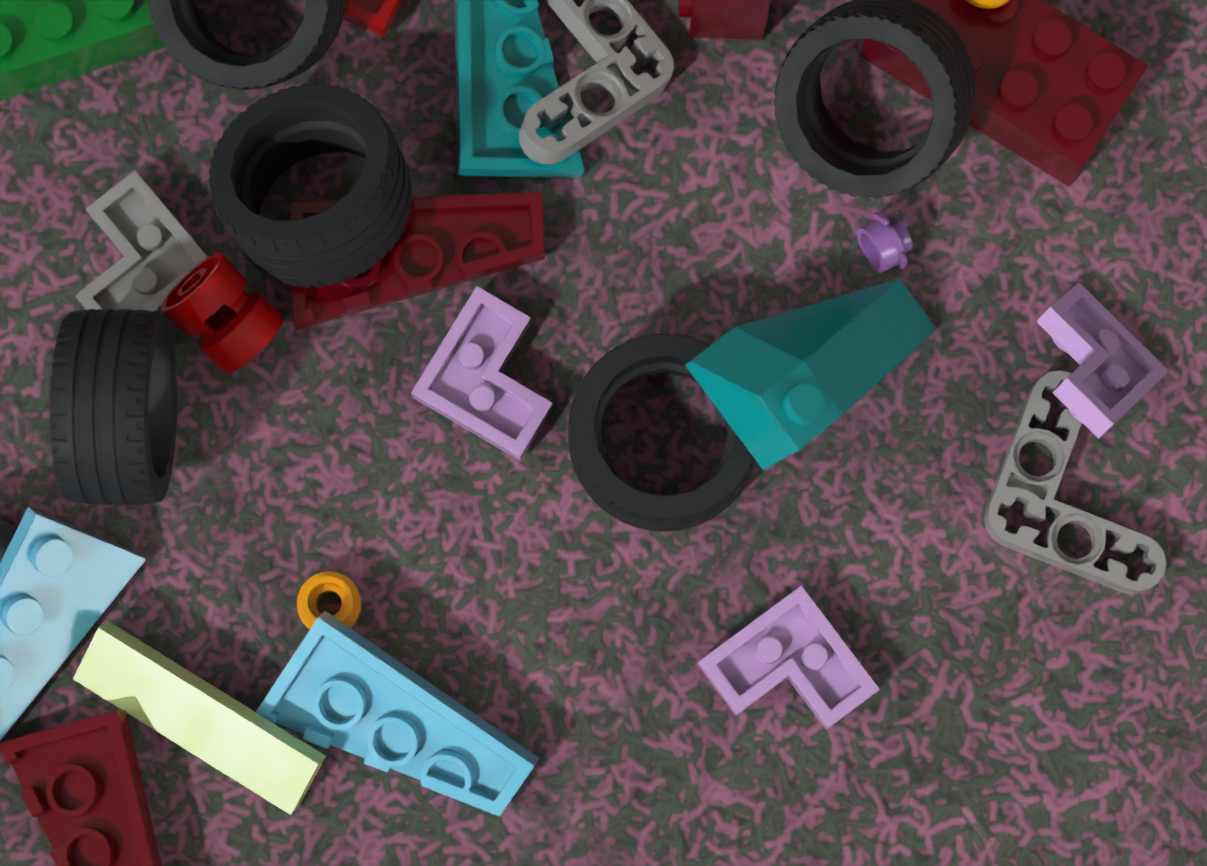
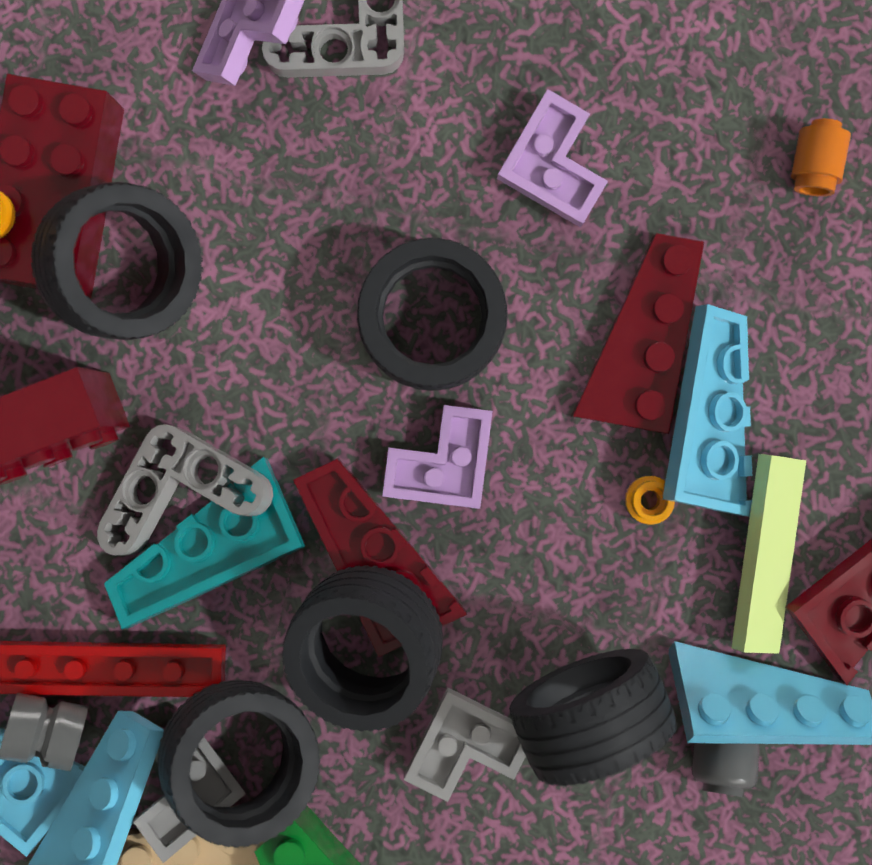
camera: 110 degrees left, 10 degrees up
(237, 329) = (486, 661): red wheel -> none
(512, 675) = (644, 353): none -> dark red wing
(806, 367) = (346, 226): teal wedge -> none
(884, 242) = (223, 220): medium lavender plate -> none

